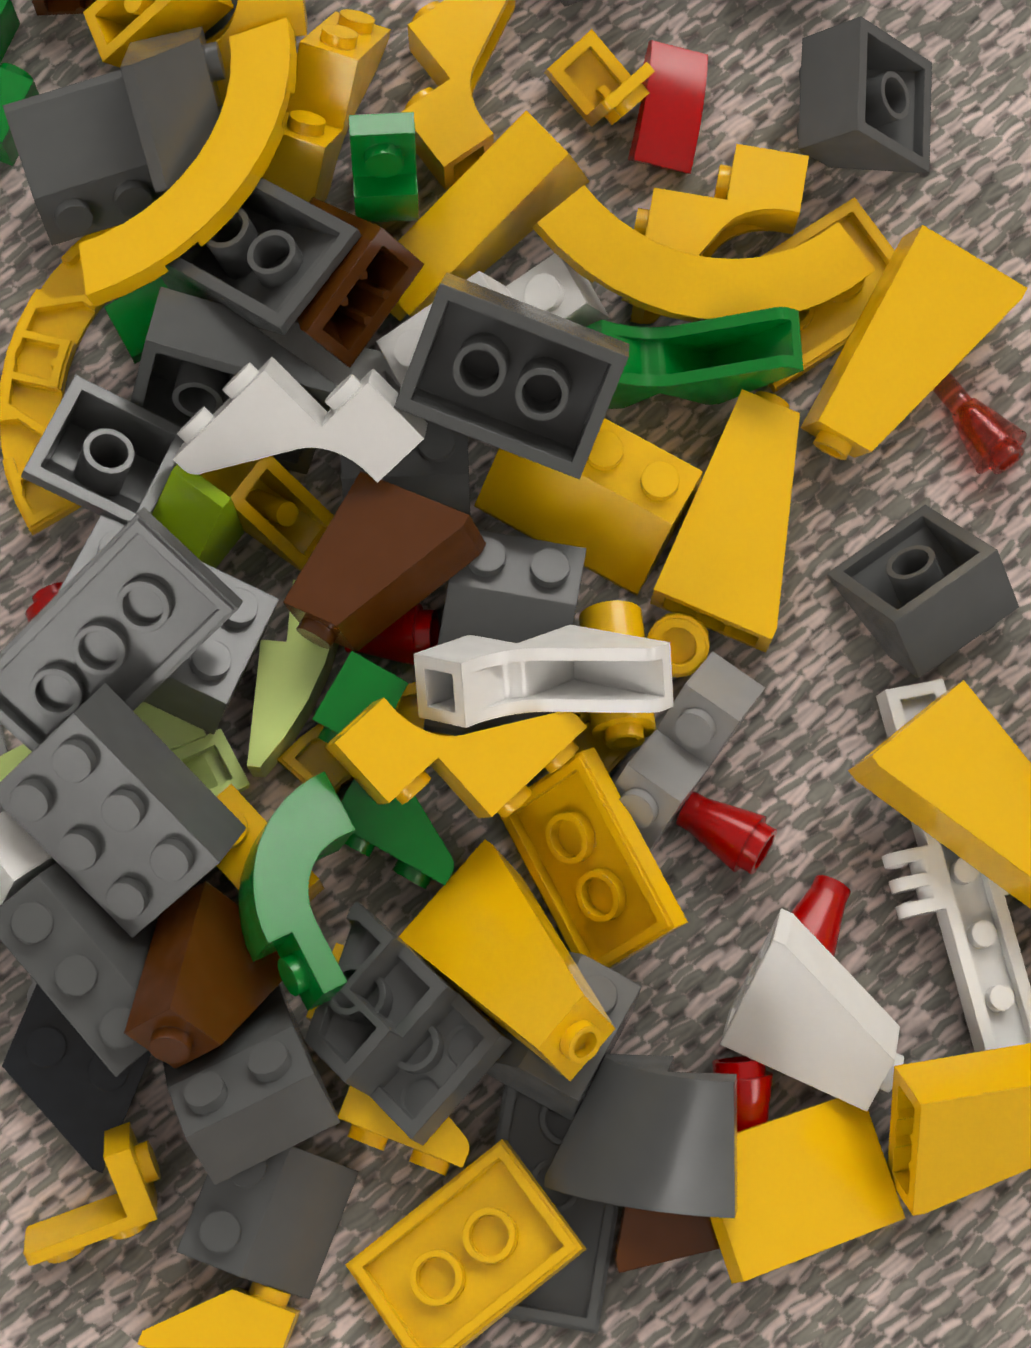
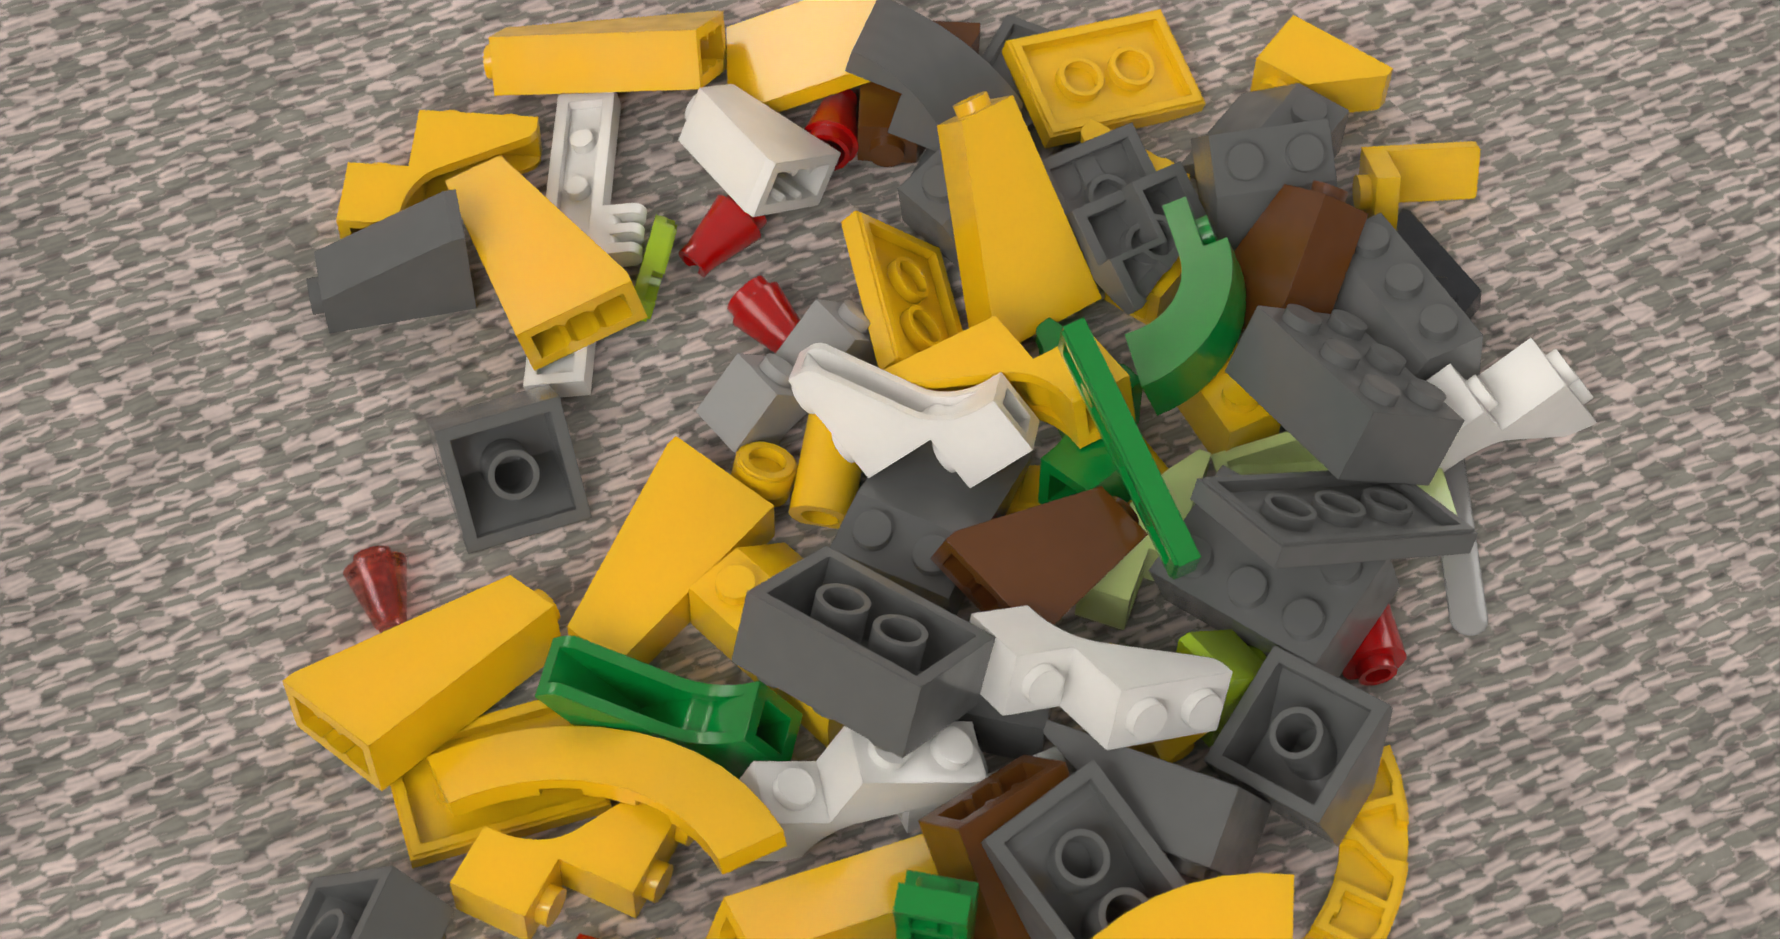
camera: 165 degrees left, 20 degrees down
(318, 649) = (1128, 450): none -> green tile
(870, 872) = (655, 262): none -> lime tile

